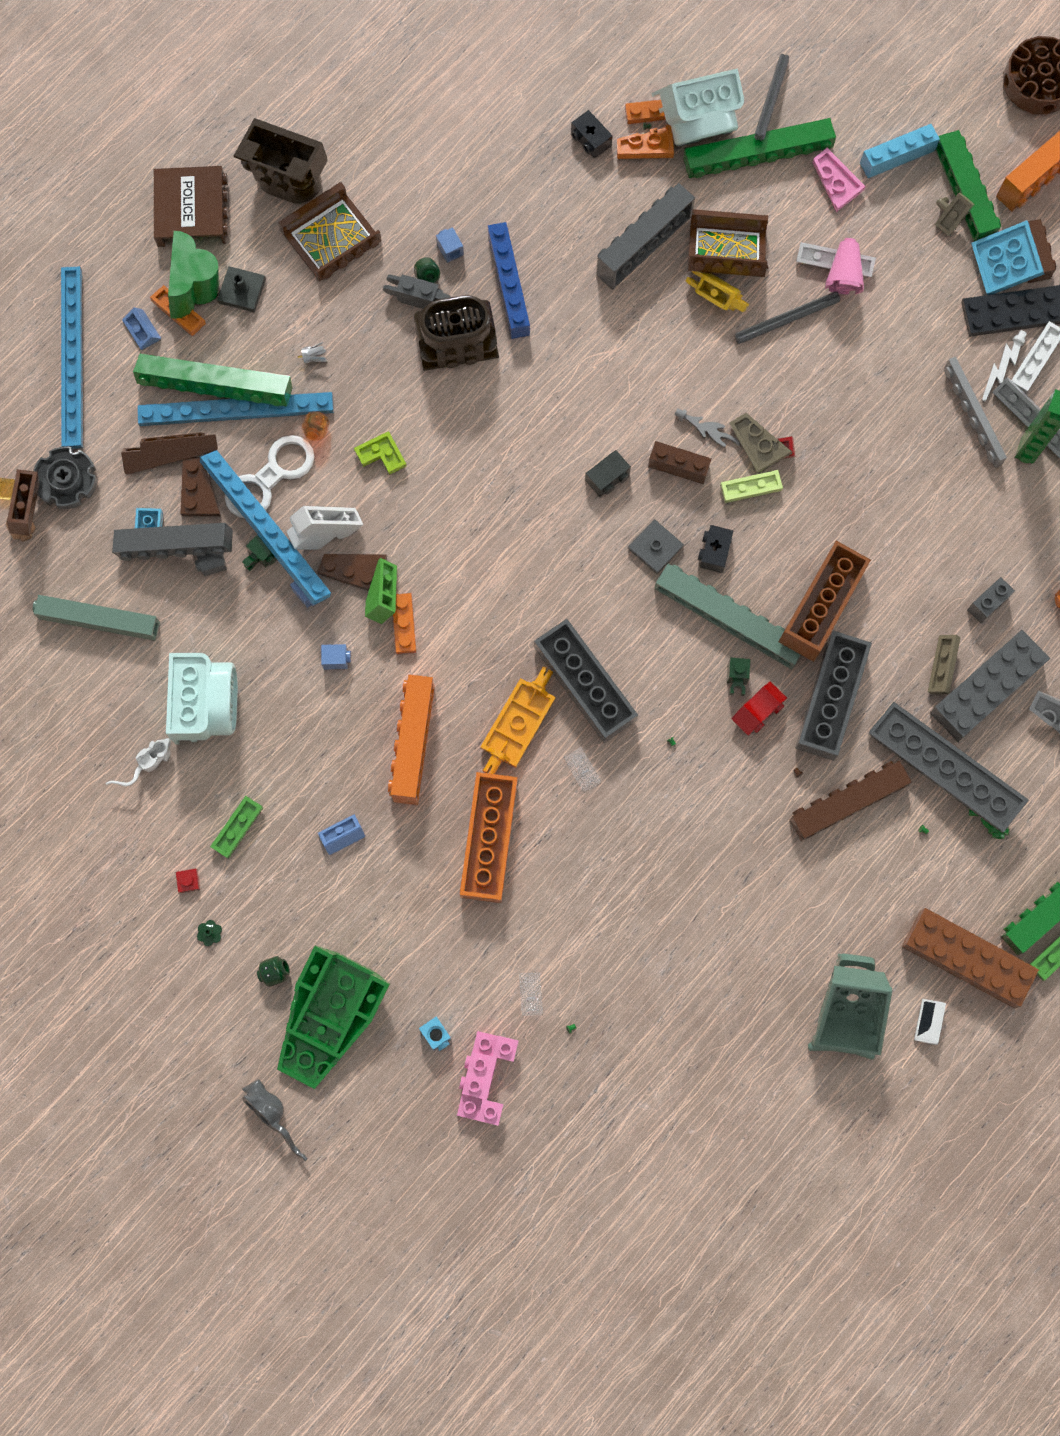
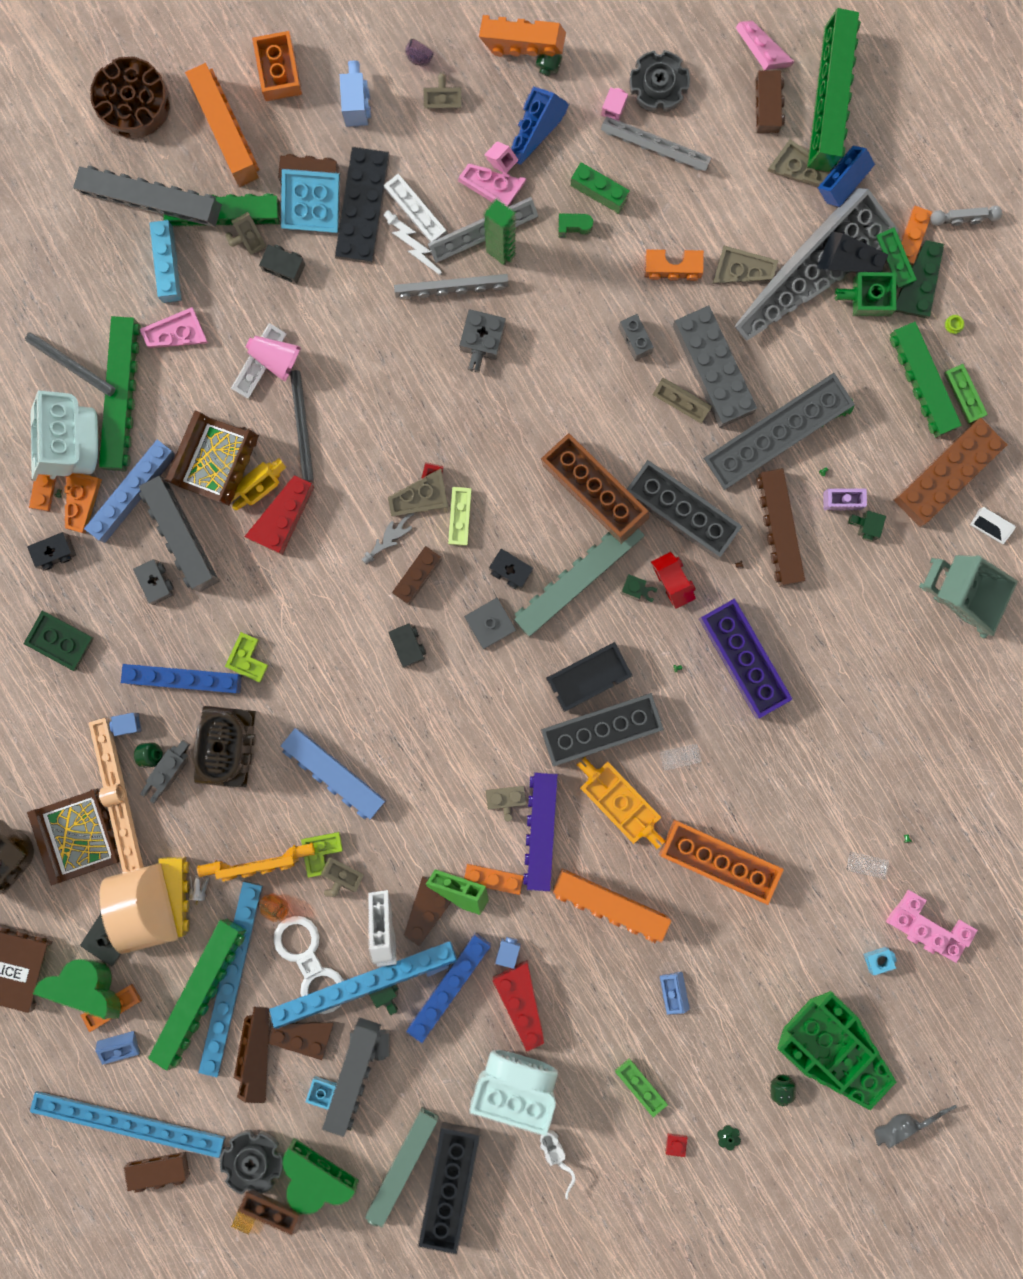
camera: 70 degrees left, 10 degrees up
(33, 395) = (156, 1172): none -> reddish brown brick
(64, 535) = (315, 1179): none -> green brick
(88, 666) = (449, 1188): none -> black brick
(283, 297) = (136, 901): none -> light nougat plate
(285, 609) = (448, 987): none -> blue brick
(289, 682) = (520, 1002): none -> red wedge
(299, 333) = (174, 873): none -> yellow brick
(364, 477) = (341, 876): none -> dark tan plate
(365, 424) = (229, 872): none -> light orange plate
(461, 442) = (333, 773): none -> medium blue brick
(466, 653) = (541, 832): none -> dark purple brick
(486, 612) = (505, 799): none -> dark tan plate
(509, 165) = (58, 640): none -> dark green plate
(544, 328) = (242, 661): none -> lime plate
(592, 229) = (146, 573): none -> dark grey brick
(634, 652) = (589, 676): none -> black piece
(659, 179) = (127, 494): none -> medium blue brick
(694, 323) = (281, 517): none -> red wedge
(703, 801) = (745, 659): none -> dark purple brick
(884, 891) = (870, 525): none -> dark green brick
(902, 855) = (844, 499): none -> lavender brick
(936, 454) = (485, 346): none -> dark grey brick
(937, 253) = (282, 264): none -> pearl dark grey brick
(955, 115) = (147, 196): none -> dark grey brick

